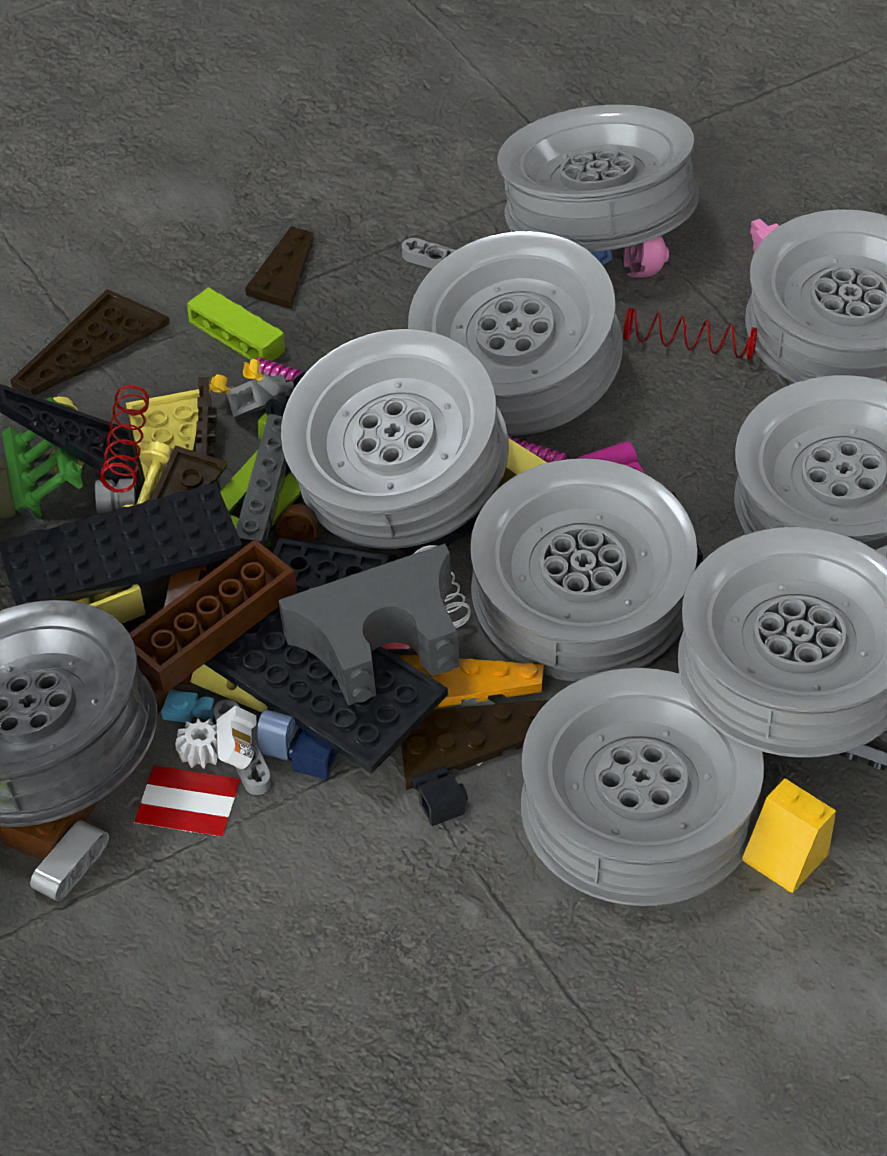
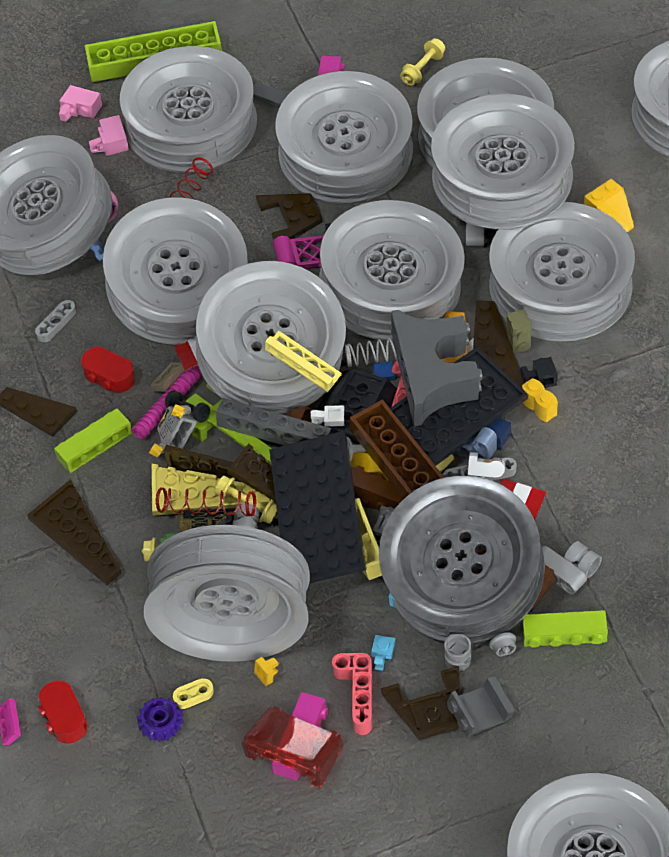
camera: 75 degrees left, 5 degrees up
(84, 889) = (583, 559): none -> light grey wheel
(287, 541) = (331, 416): none -> white plate
(329, 461) = (300, 363): none -> light yellow fence
(356, 314) = (108, 369): none -> red brick
(383, 797) = (540, 400): none -> yellow brick
(504, 748) = (519, 331): none -> olive brick
(696, 468) = (297, 210): none -> dark brown wing
(832, 192) = (79, 102): none -> bright pink hinge

